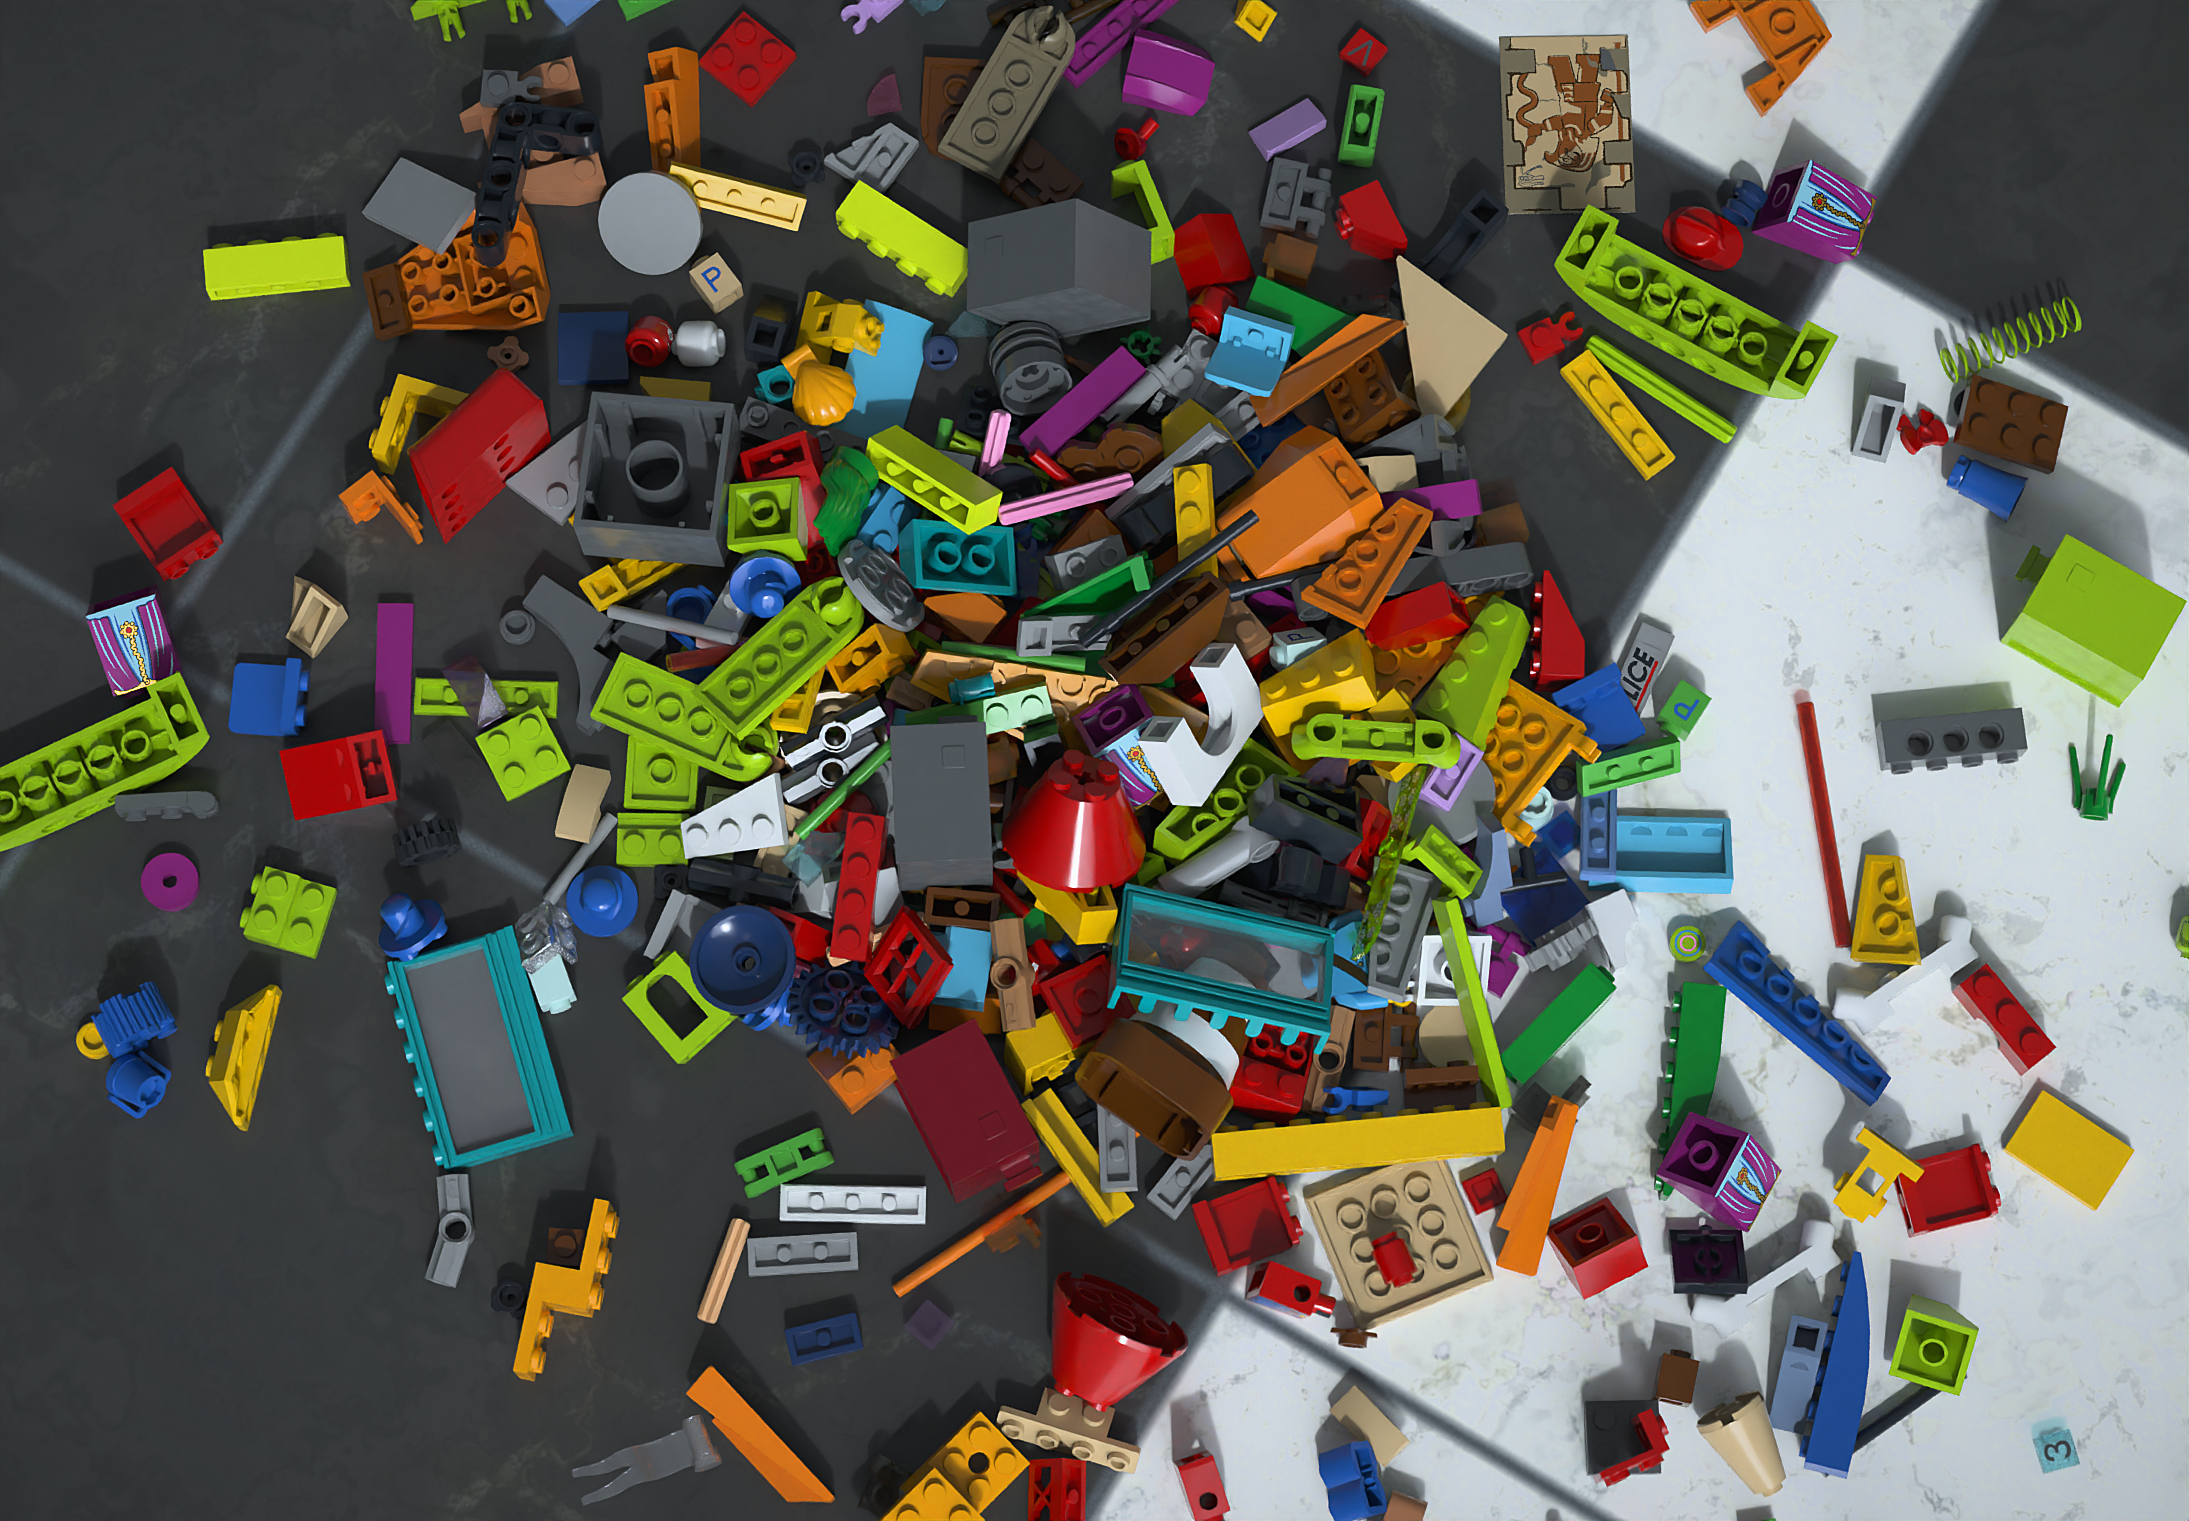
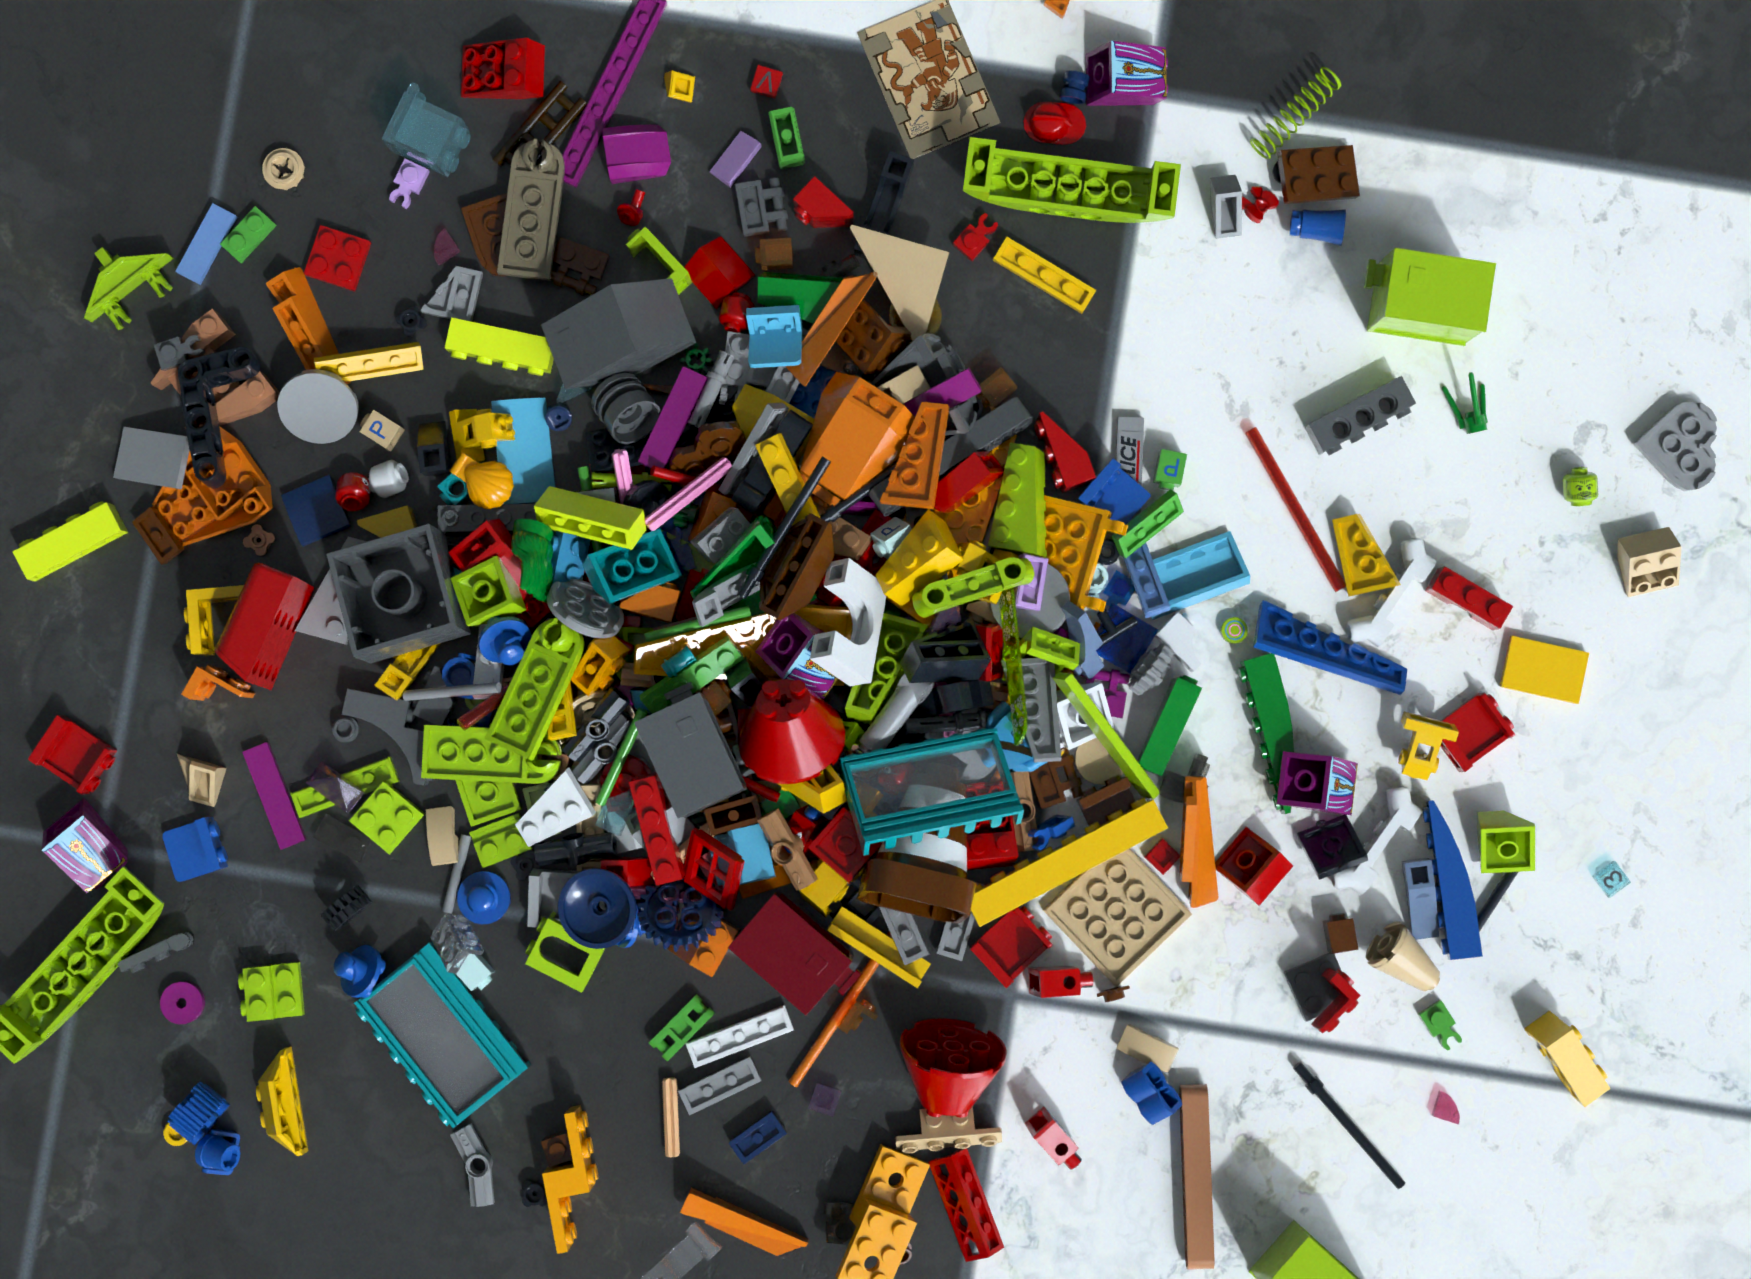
camera: 20 degrees left, 10 degrees up
(340, 774) = (268, 883): red slope -> none
(1393, 1259) = (1120, 931): red brick -> none
(1661, 389) = (1067, 244): lime axle -> none

